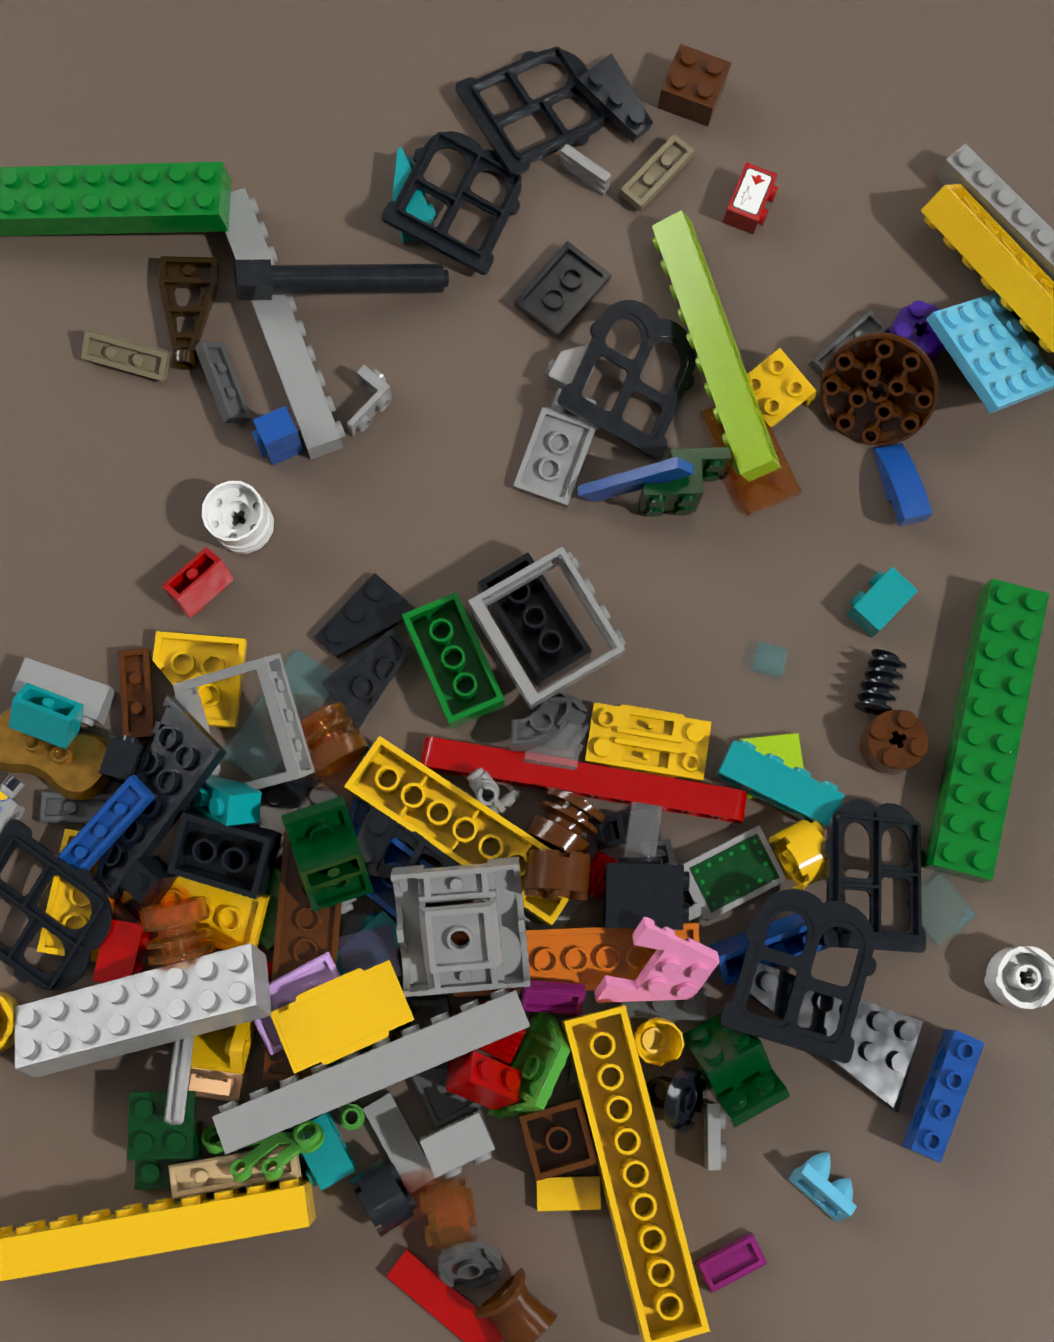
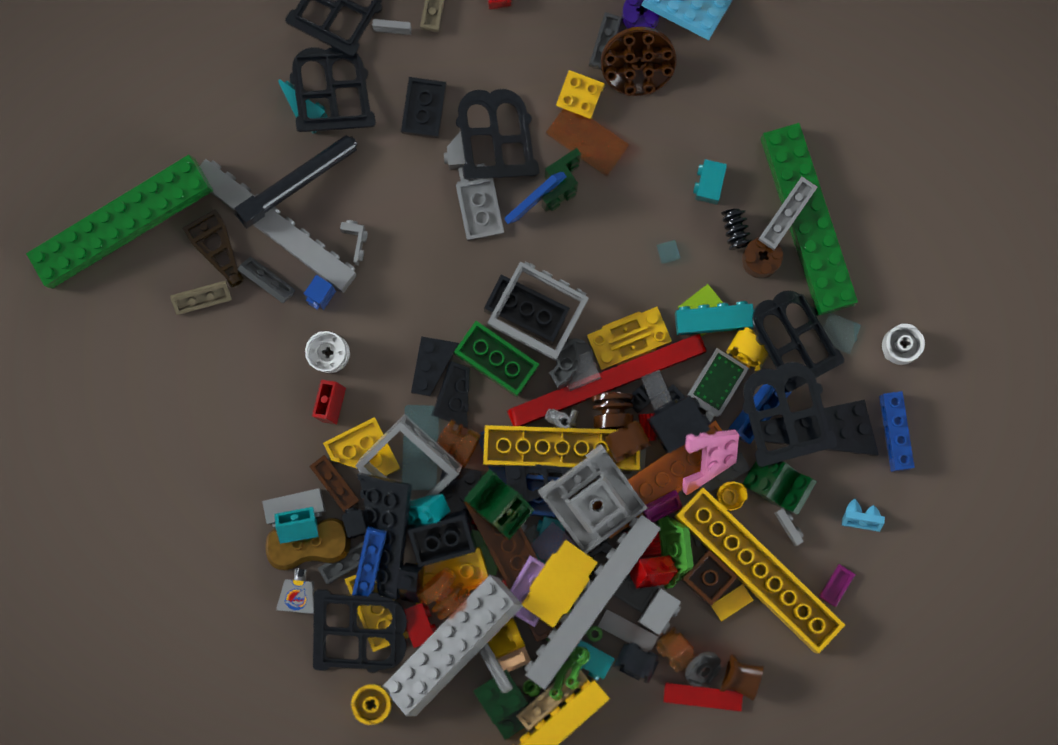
camera: 25 degrees left, 5 degrees up
(683, 1098) = (762, 517): black tile -> none
(715, 347) = (531, 90): lime brick -> none
(902, 484) = (682, 106): blue slope -> none
(965, 701) = (787, 213): none -> light grey plate

